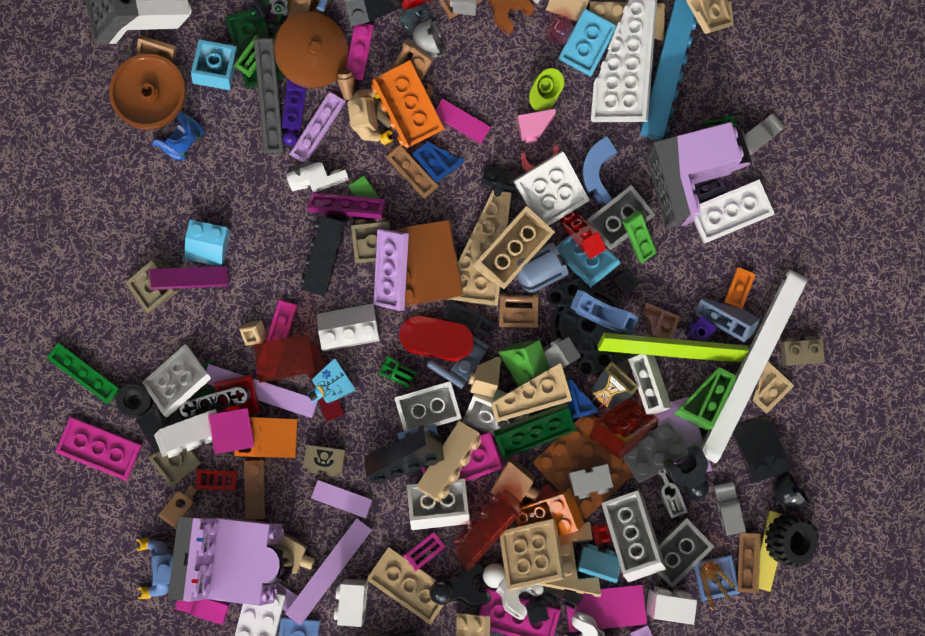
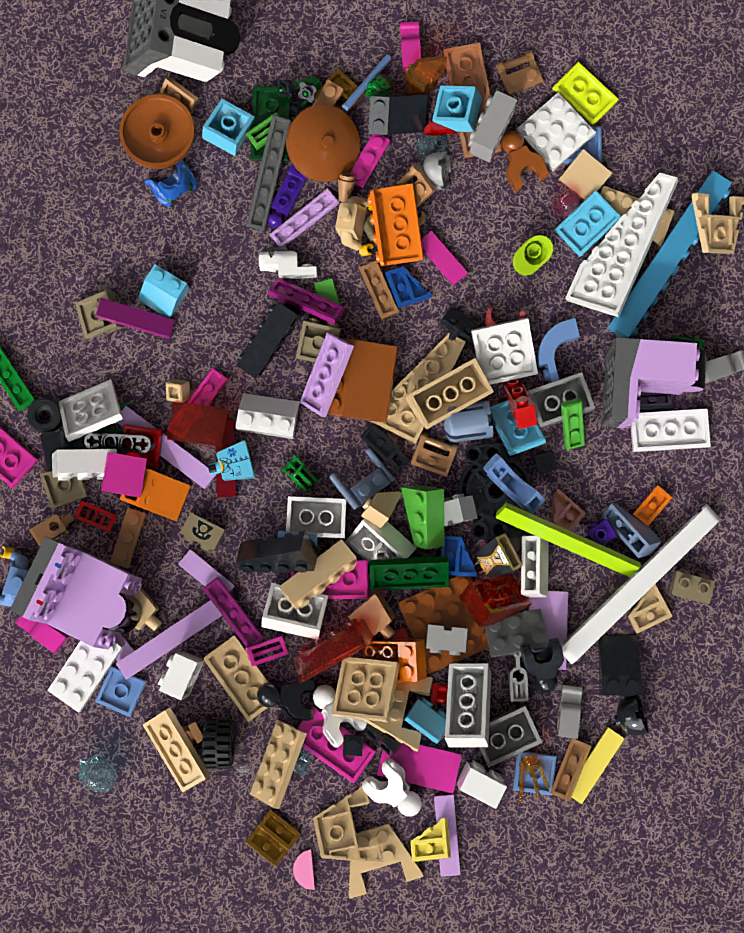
camera: 25 degrees right, 0 degrees up
(379, 526) = (232, 613): none -> magenta tile
(436, 338) = (347, 454): red tile -> none
(534, 124) = (510, 284): bright pink slope -> none
(537, 394) = (430, 538): tan wing -> none
(707, 400) = (583, 602): bright green wedge -> none
(804, 540) = (630, 769): black tyre -> none

